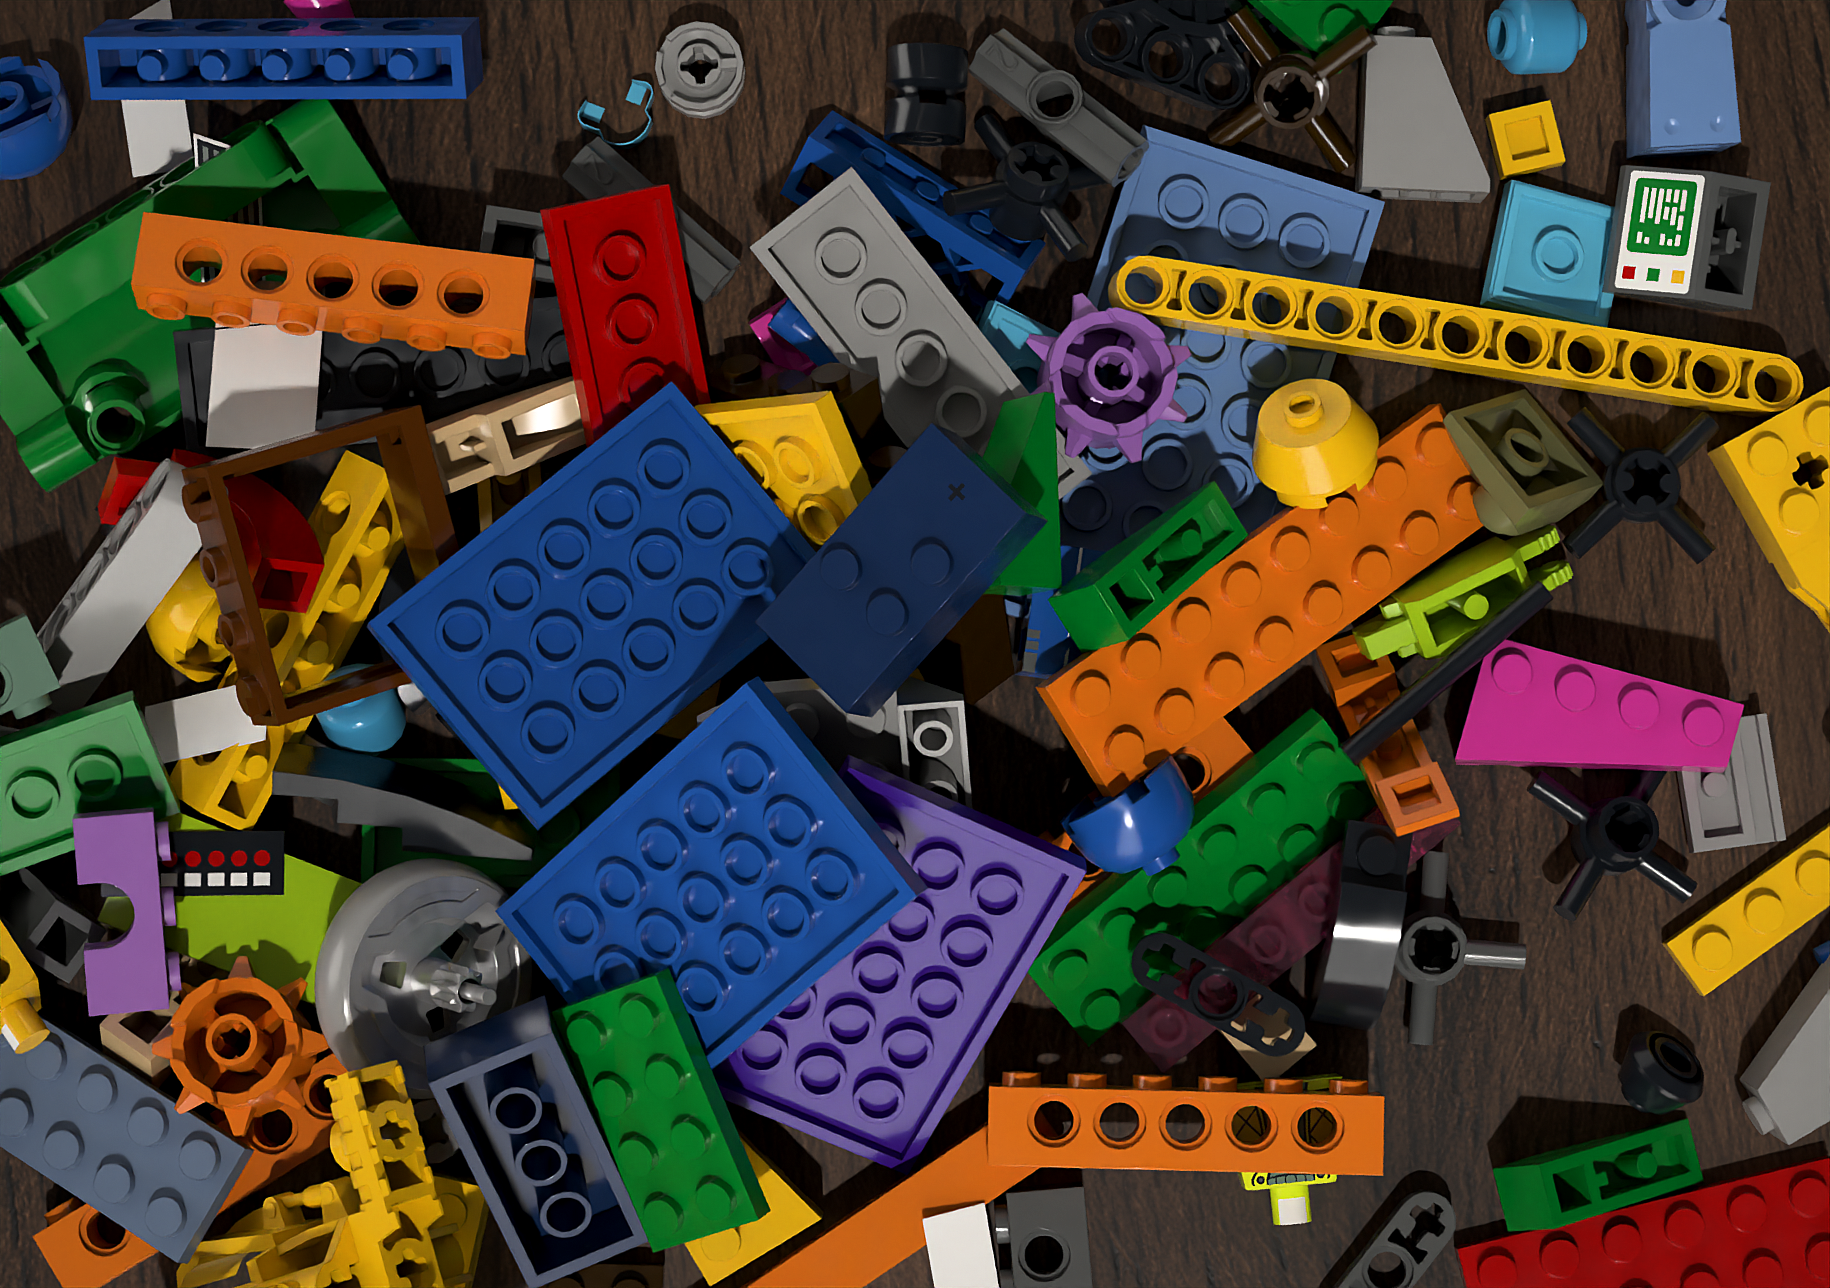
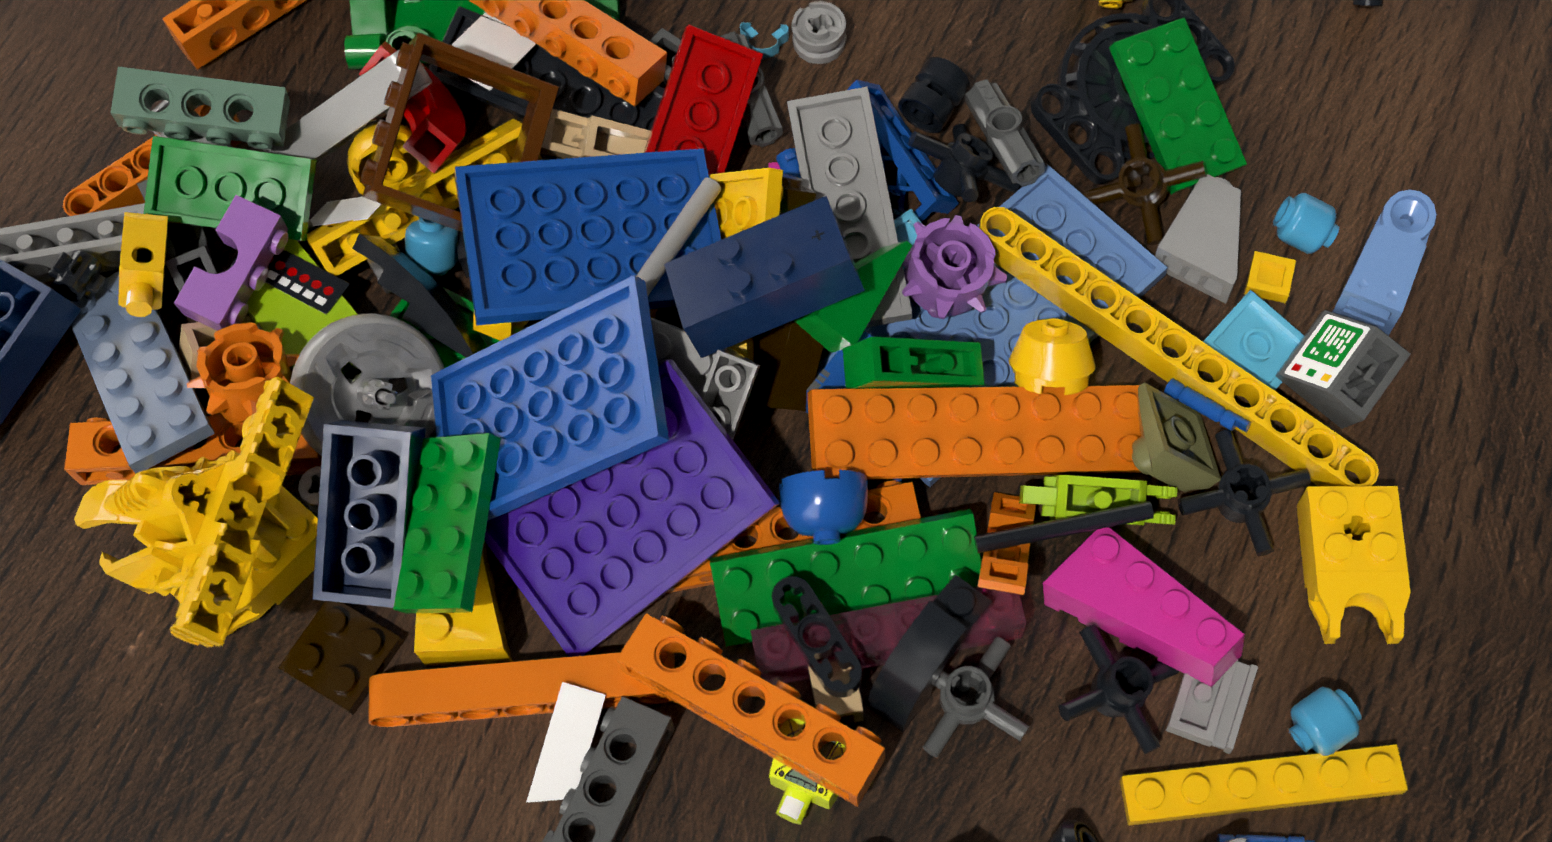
camera: 35 degrees right, 20 degrees down
(722, 564) = (679, 232): none -> light grey piece
(1536, 391) = (1206, 406): none -> blue wheel

